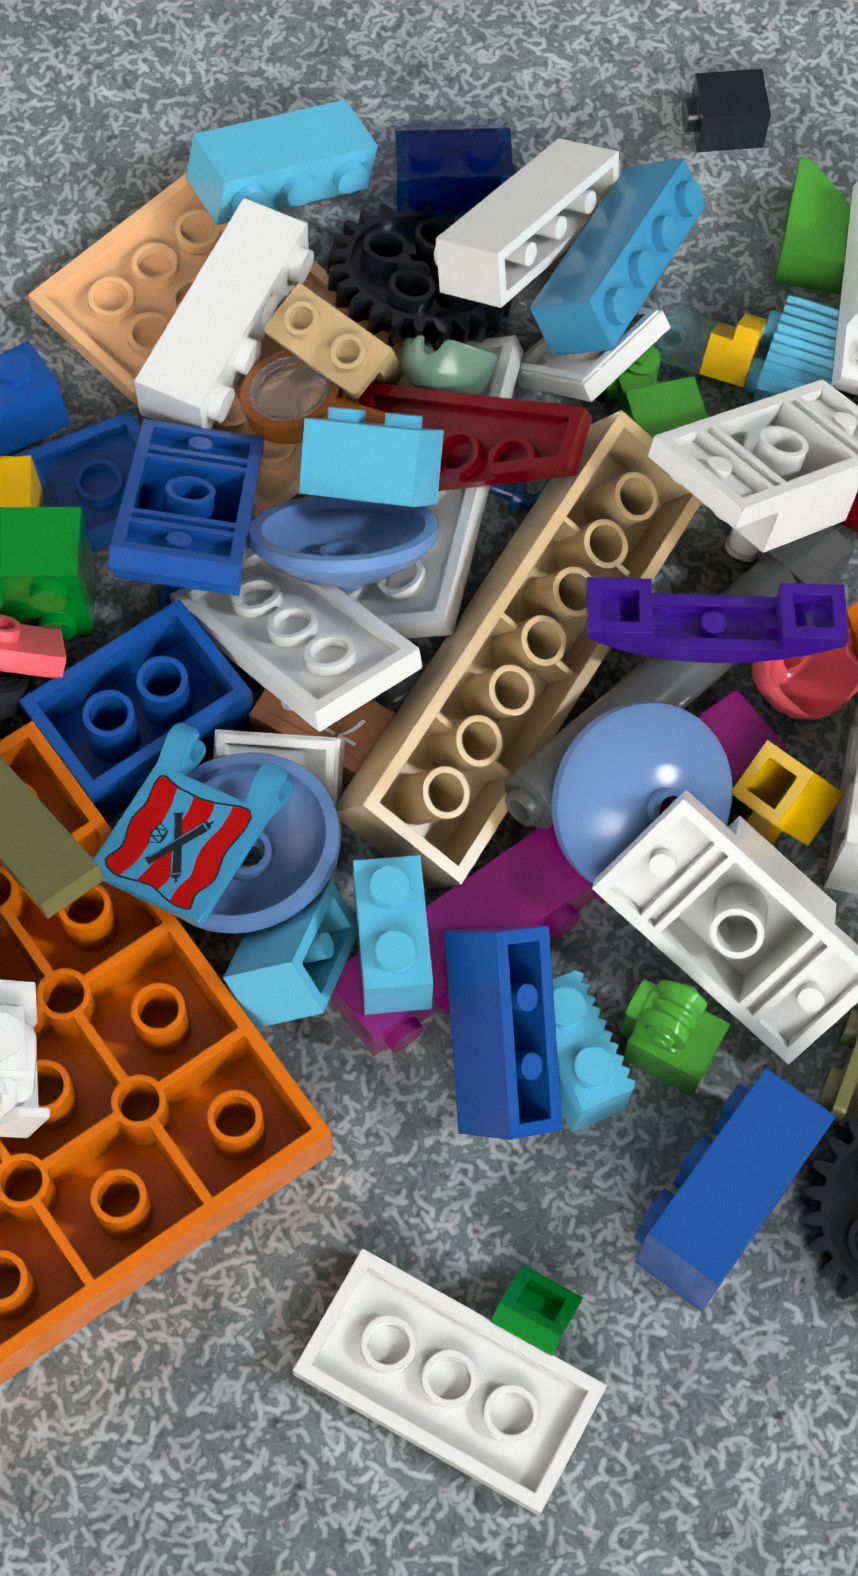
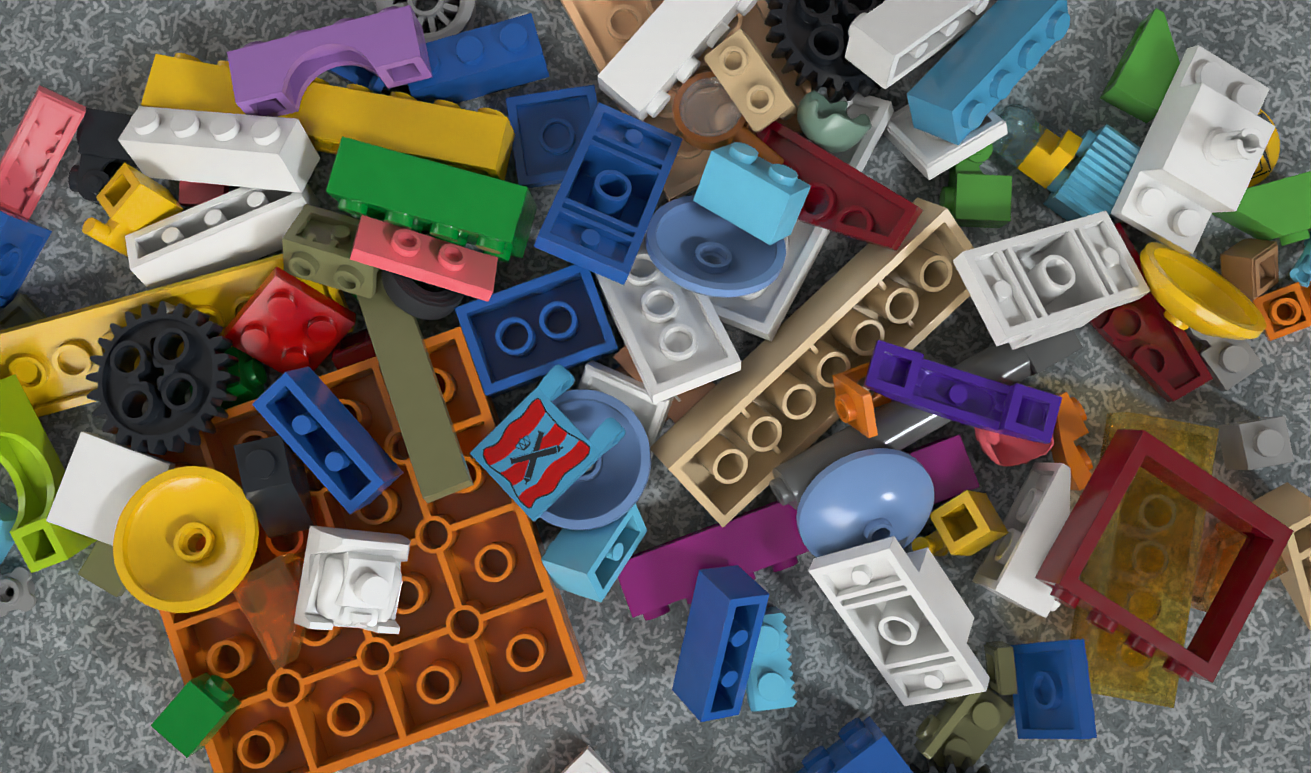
camera: 20 degrees right, 20 degrees up
(392, 934) = (663, 561): medium azure brick -> none
(588, 666) = (855, 403): none -> orange bracket
(672, 1033) = (833, 668): bright green brick -> none

